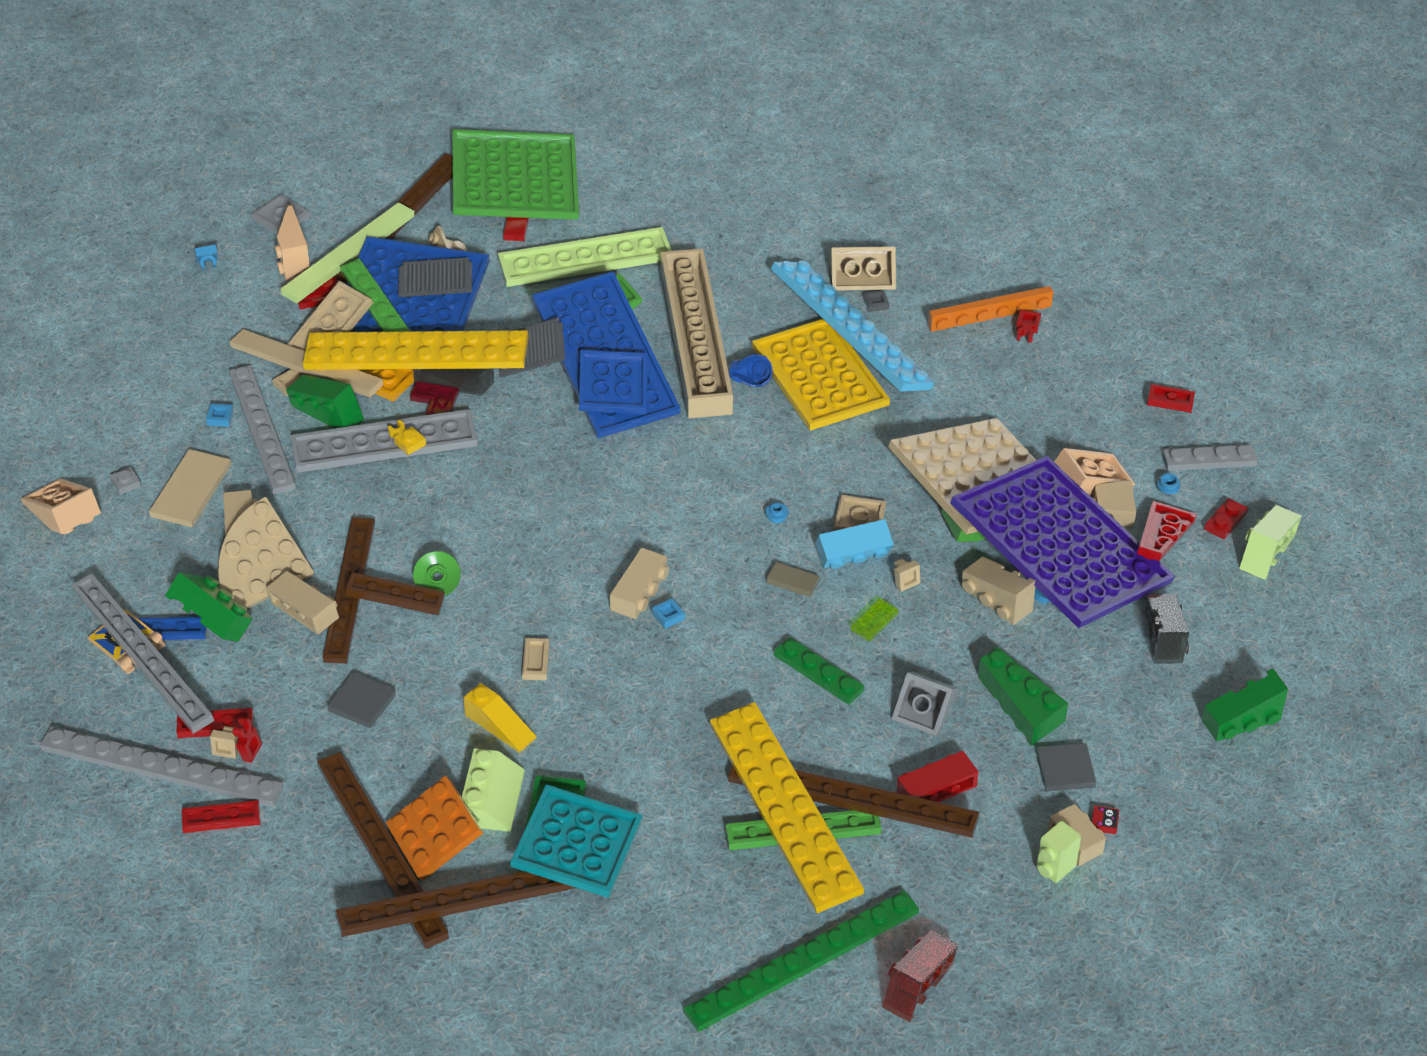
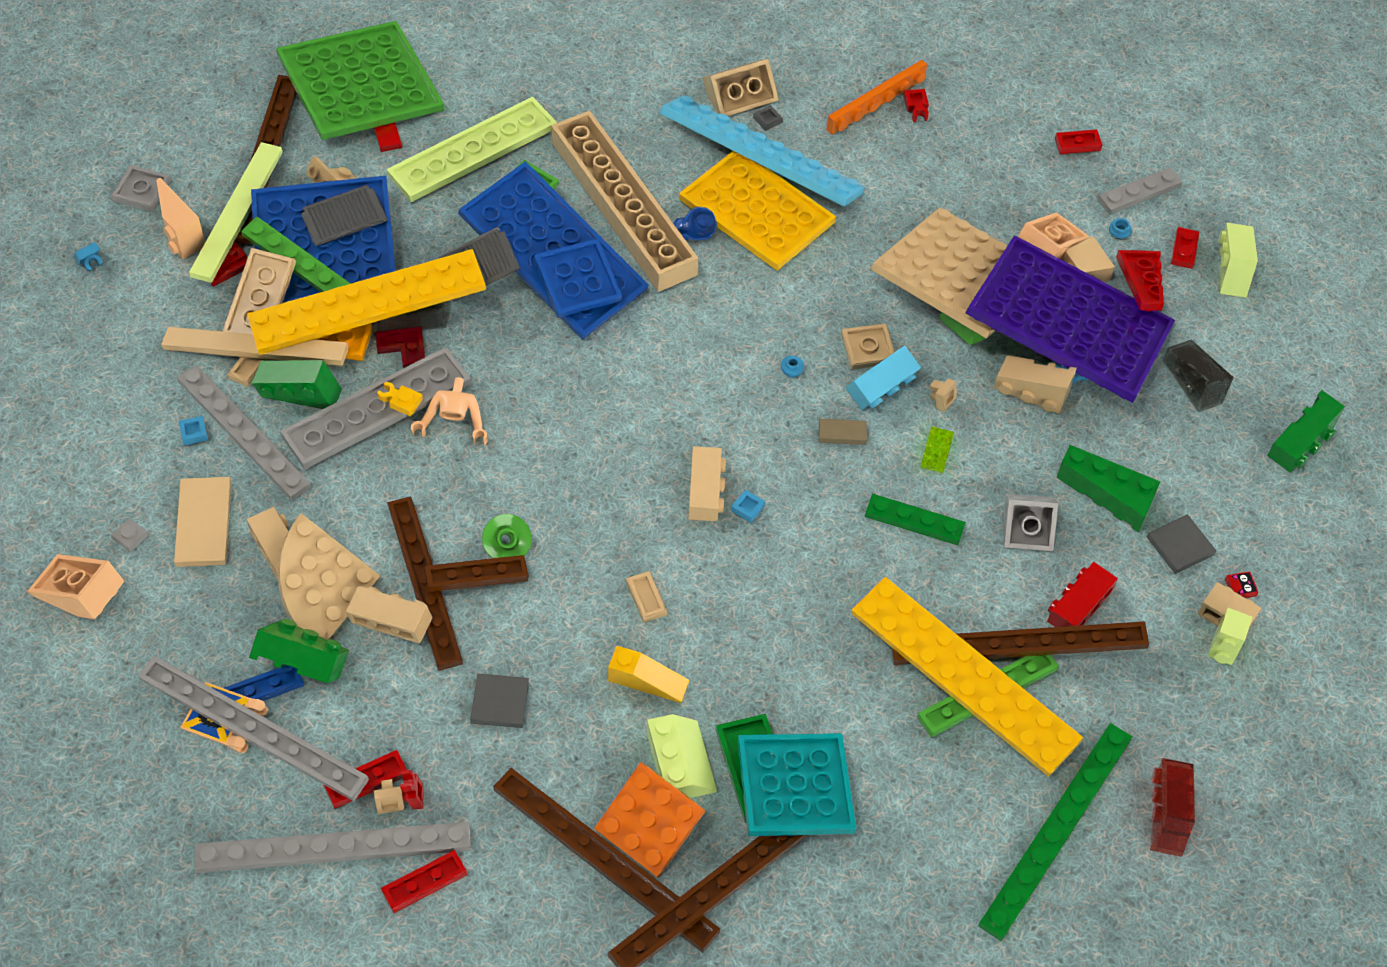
camera: 25 degrees left, 10 degrees up
(447, 456) = (453, 407): none -> light nougat piece

